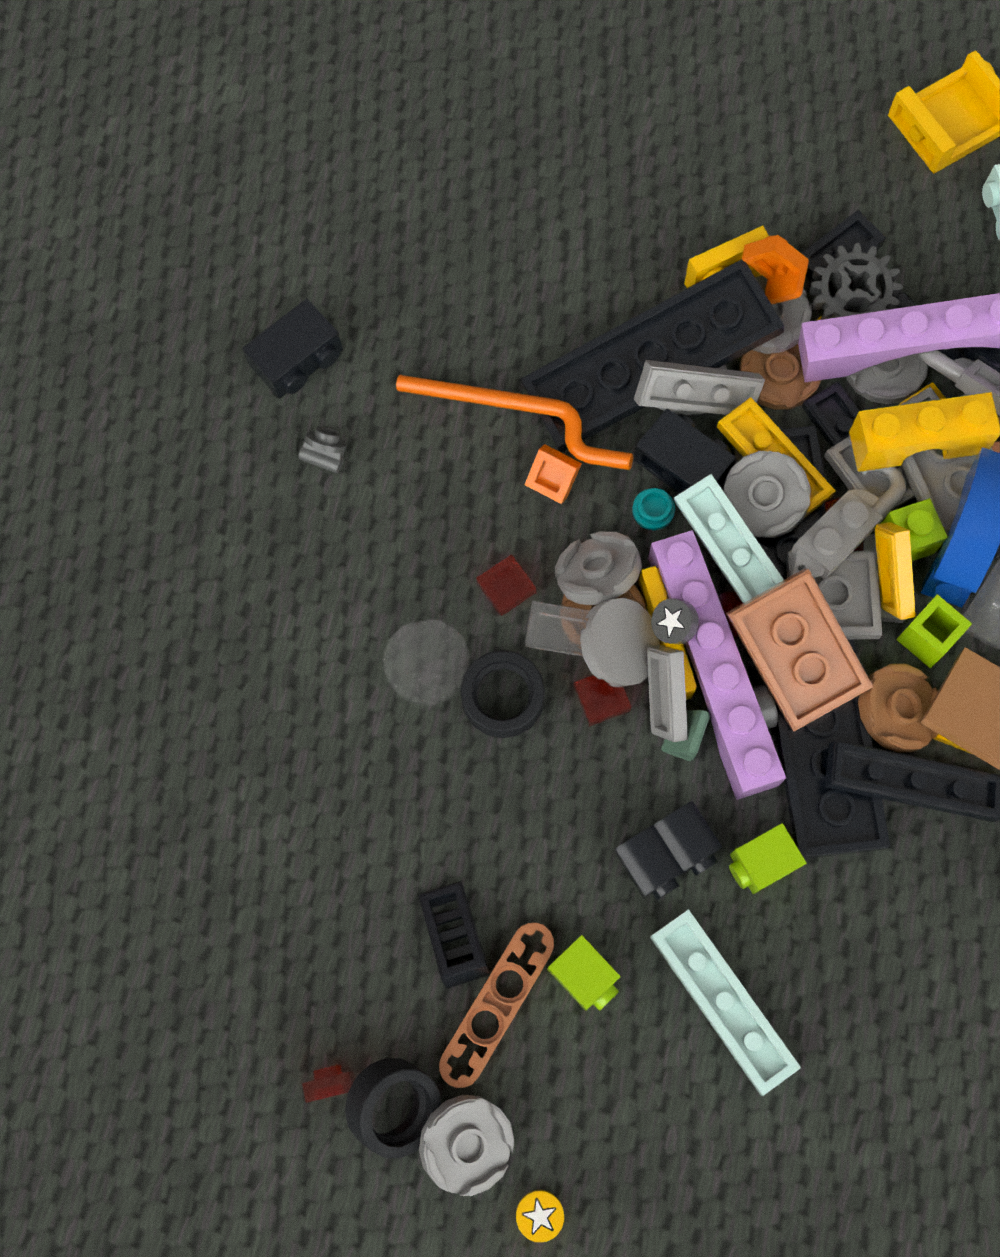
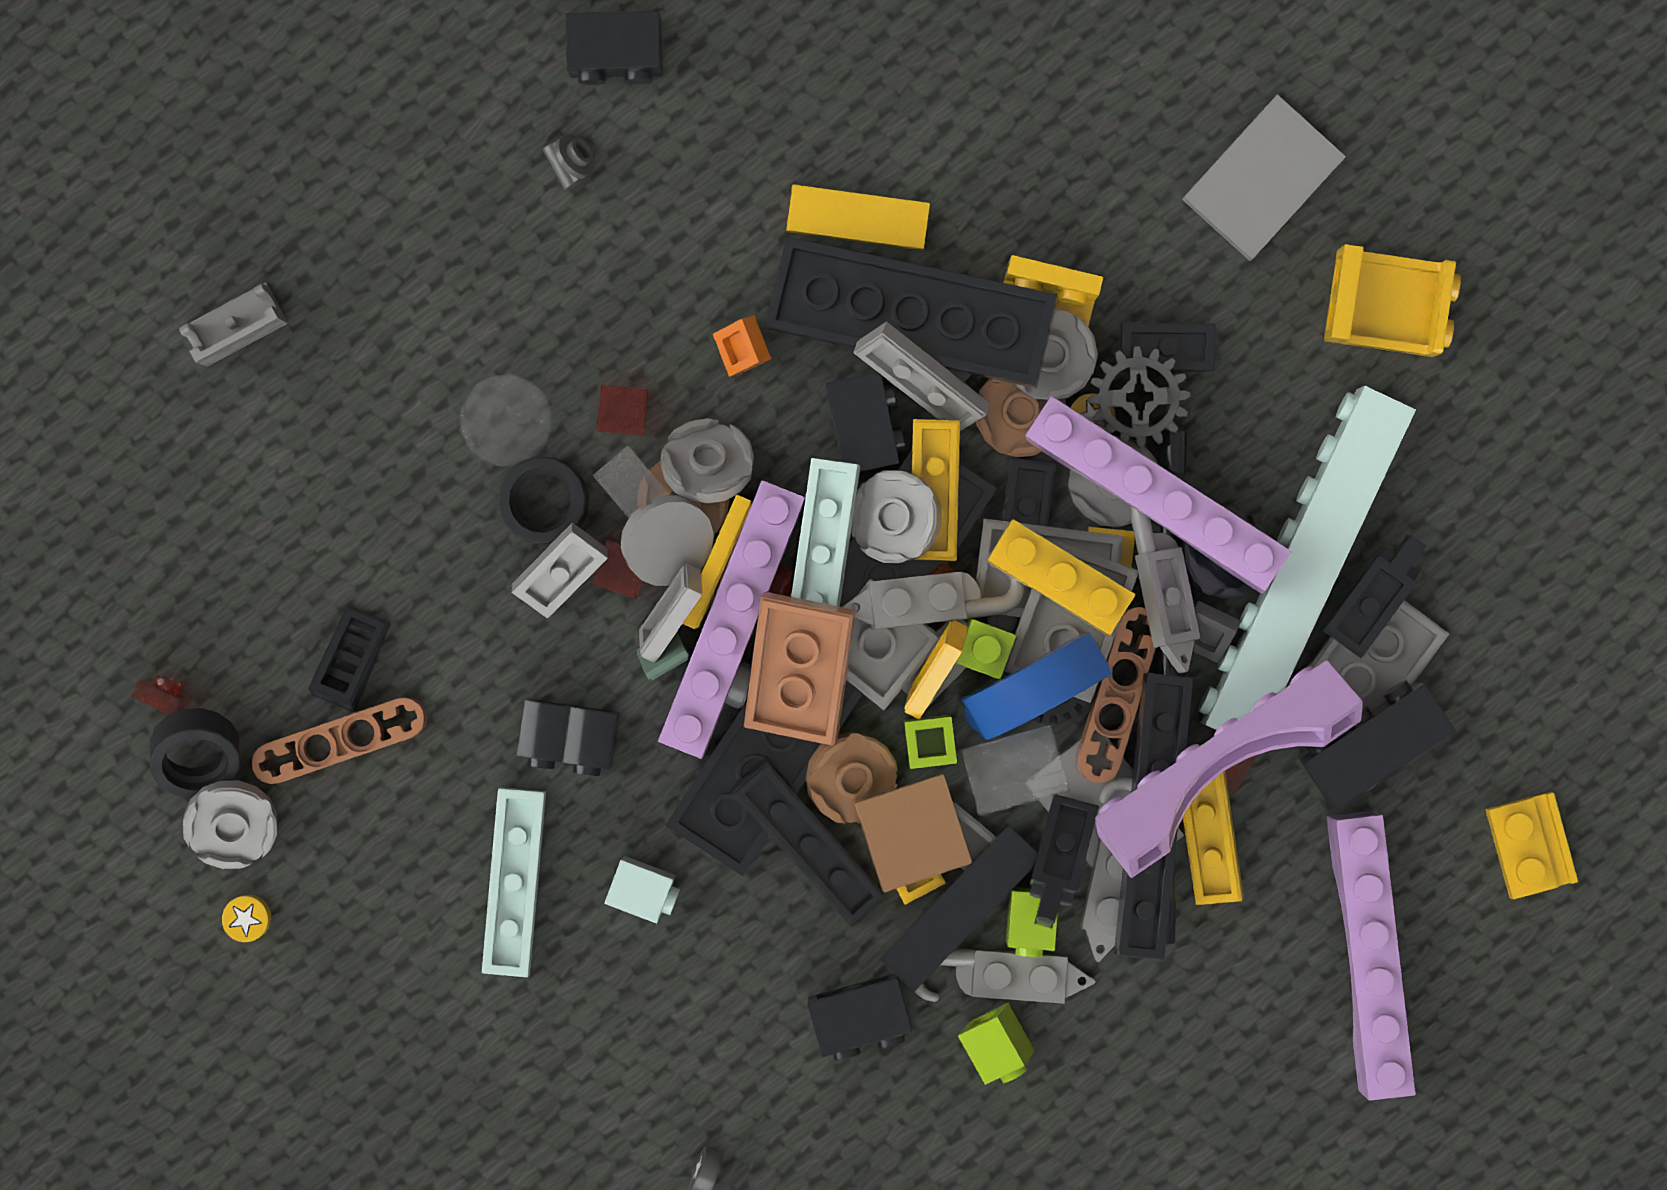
camera: 30 degrees right, 15 degrees up
(167, 753) = (233, 325): none -> light grey hinge
(526, 403) = (768, 264): orange piece -> none
(557, 333) = (858, 217): none -> yellow tile
(558, 731) = (560, 570): none -> light grey plate
(585, 975) = (422, 775): lime brick -> none
(653, 509) = (801, 443): teal plate -> none
(674, 621) = (720, 563): dark grey tile -> none
(765, 859) = (637, 805): lime brick -> none
(780, 265) = (1085, 335): orange bracket -> none
(800, 107) = (1263, 177): none -> light grey tile
(826, 922) = (642, 890): none -> light aqua brick

